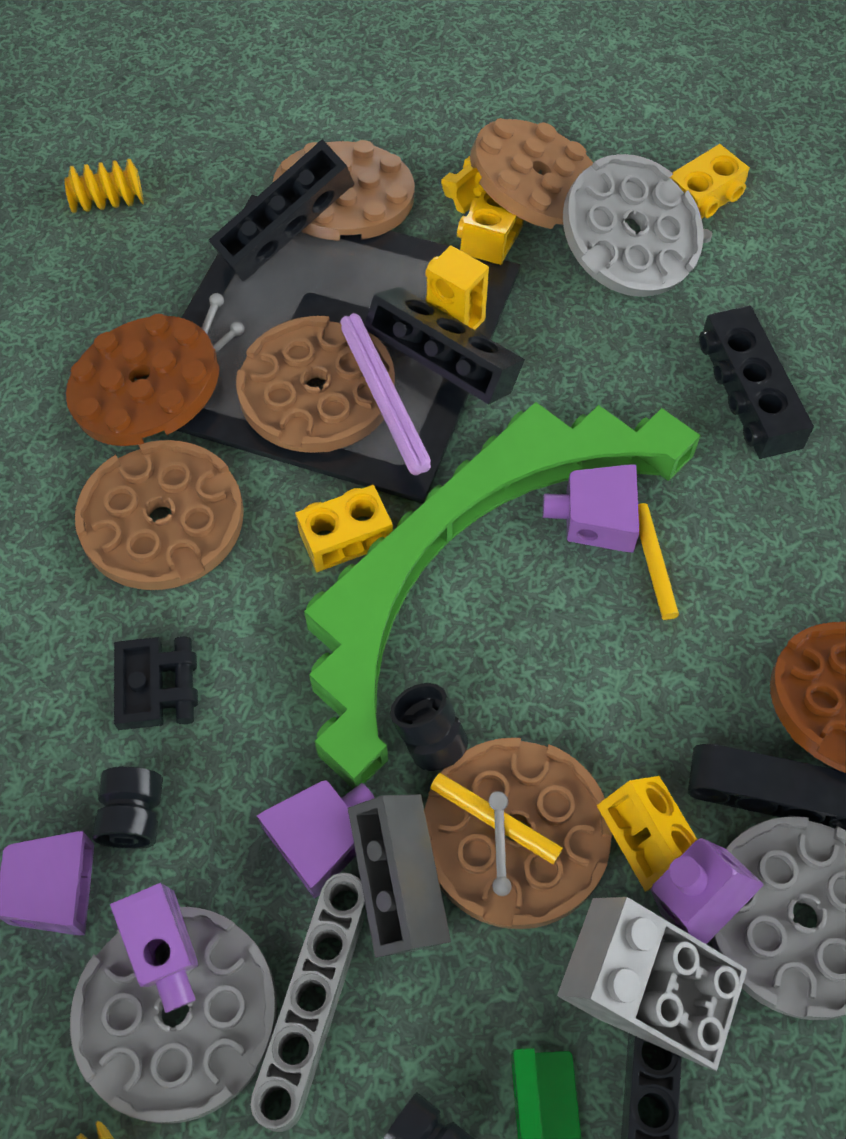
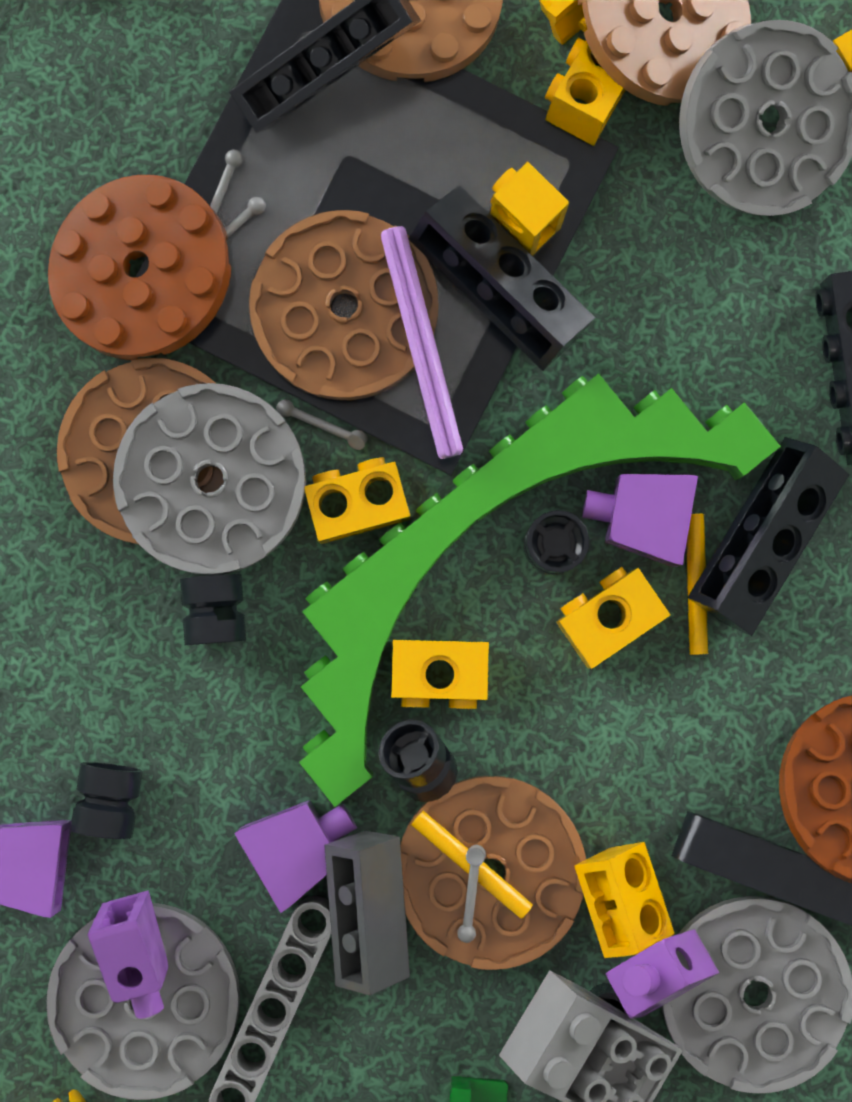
camera: 10 degrees right, 25 degrees up
(139, 682) = (123, 655): black plate -> none
(222, 626) = (213, 609): none -> black wheel
(230, 553) = (160, 471): none -> light grey plate
(337, 486) = (355, 439): none -> light grey hinge
(456, 637) = (469, 666): none -> yellow brick
(524, 533) = (556, 542): none -> black wheel
(577, 611) = (639, 609): none -> yellow brick
(707, 508) = (769, 535): none -> black brick

